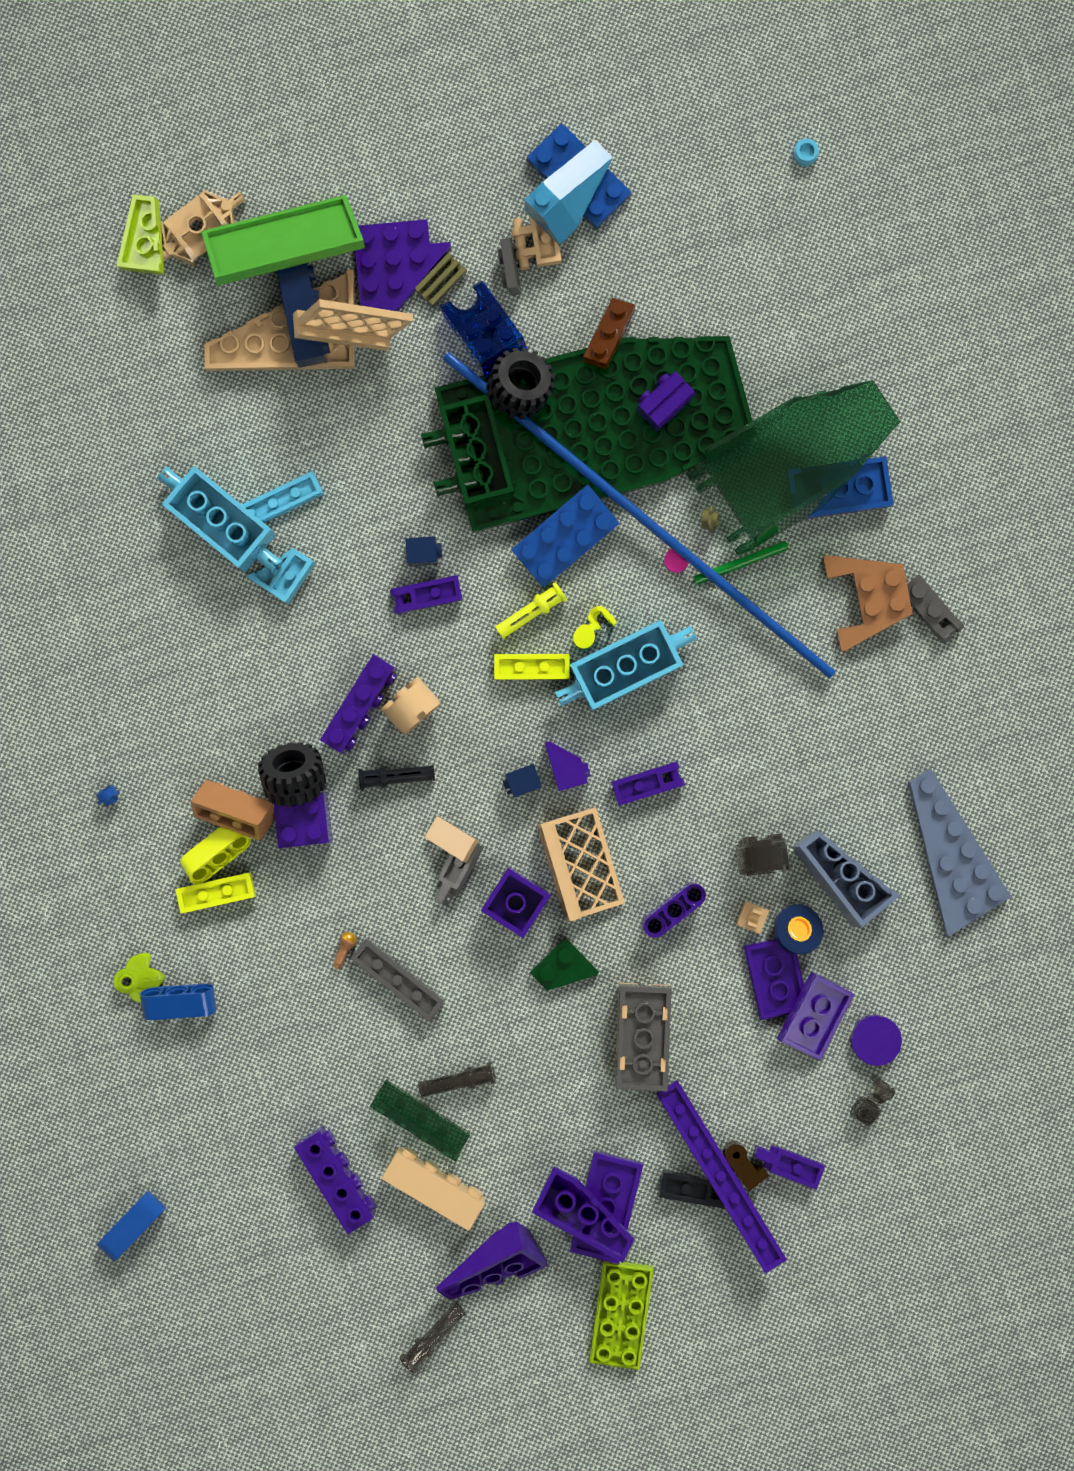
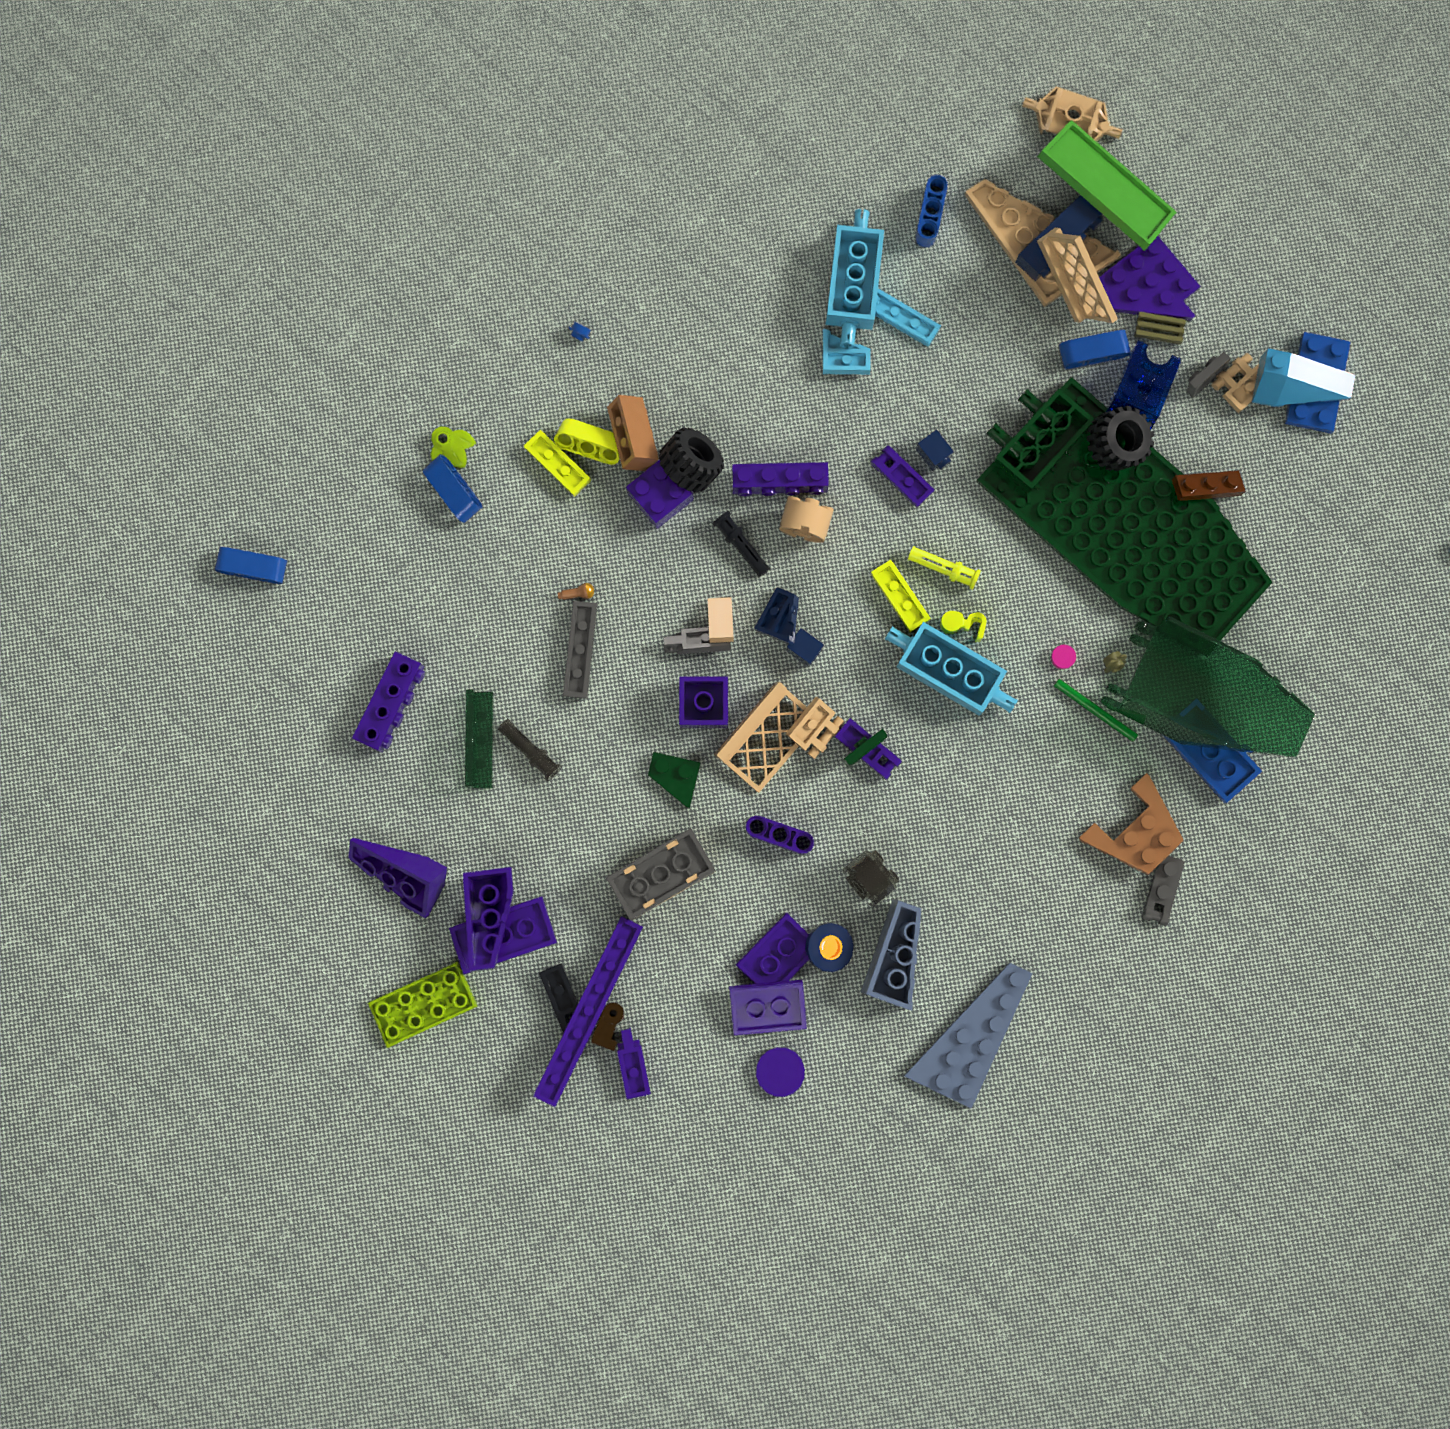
camera: 60 degrees right, 5 degrees down
(142, 237) = (1035, 79): lime wing -> none
(195, 402) = (935, 201): none -> blue beam
(423, 350) = (1094, 349): none -> blue beam
(425, 1345) = (298, 860): clear smoke pin -> none
(434, 1188) = (431, 785): tan brick -> none
(482, 785) = (779, 617): none -> dark blue wing
(565, 536) = (1023, 555): blue plate -> none
(566, 767) = (837, 675): dark purple slope -> none
(595, 819) = (811, 723): none -> tan plate
(646, 787) = (863, 747): none -> dark green plate
(651, 525) = (1077, 621): blue piece -> none
(665, 400) = (1184, 562): dark purple brick -> none
(752, 917) = (814, 904): tan tile -> none
(866, 1108) = (720, 1098): clear smoke leg -> none

